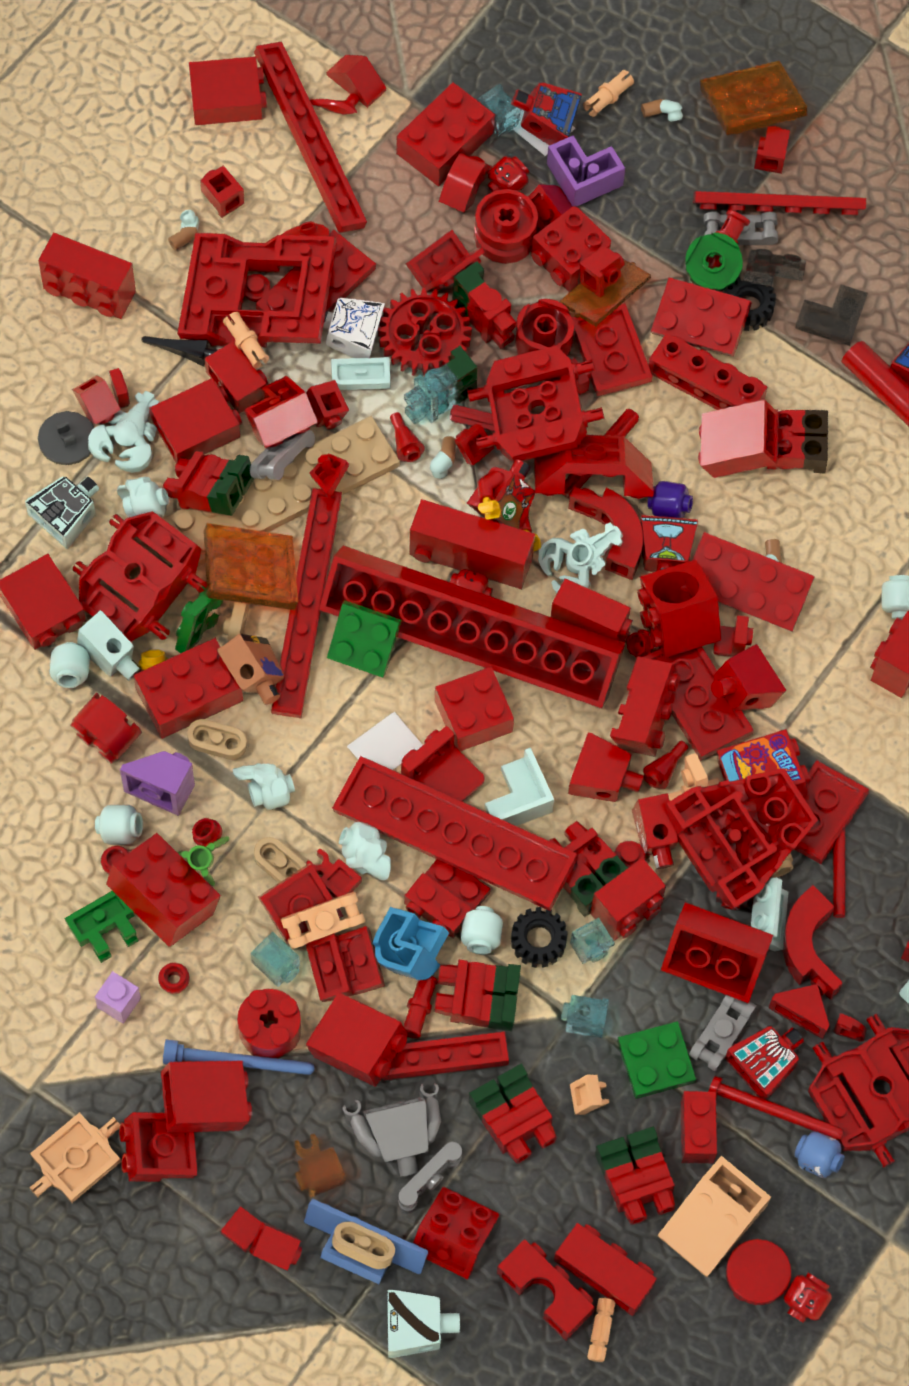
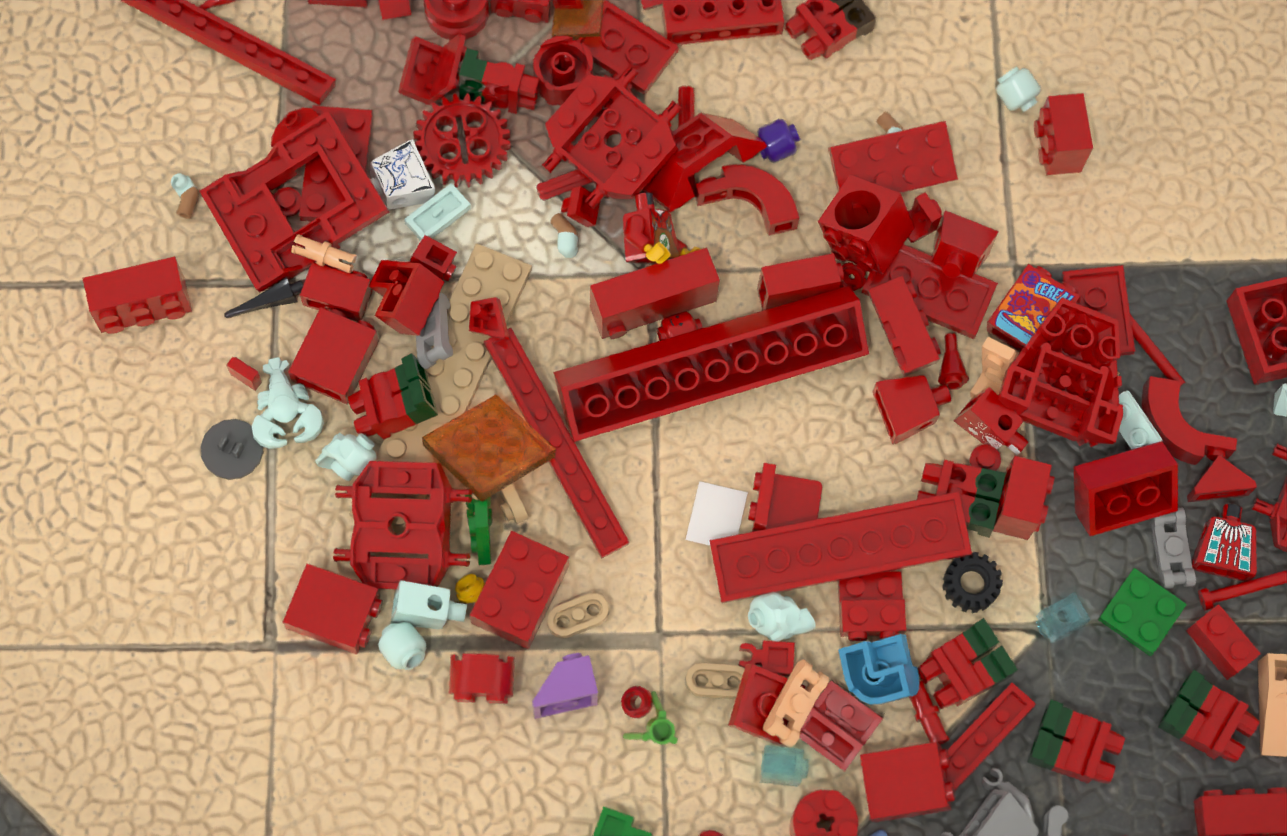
camera: 40 degrees left, 5 degrees up
(63, 508) = (283, 513): torso -> none
(96, 400) = (235, 398): brick -> none
(112, 855) = (580, 784): red plate -> none
(119, 824) = (559, 751): light aqua head -> none
(163, 889) = (645, 780): red brick -> none
(222, 190) = (186, 128): red brick -> none
(227, 90) = (120, 48): red brick -> none
(253, 665) = (563, 531): nougat torso -> none
(267, 784) = (653, 623): light aqua head -> none
(364, 638) = (631, 438): green plate -> none
(407, 444) = (527, 246): red cone -> none
(441, 388) = (519, 177): clear light blue hips -> none
(474, 708) = (766, 430): red brick -> none
(481, 930) = (926, 612): light aqua head -> none
(529, 792) = (864, 466): light aqua panel -> none
(580, 556) = (746, 240): light aqua animal -> none
(587, 1094) = (1117, 683): light nougat tile -> none
(591, 941) = (1021, 554): clear light blue brick -> none
(666, 541) = (807, 178): red torso -> none
(738, 438) = (792, 49): brick -> none
(850, 1028) = (1264, 471): red tile -> none

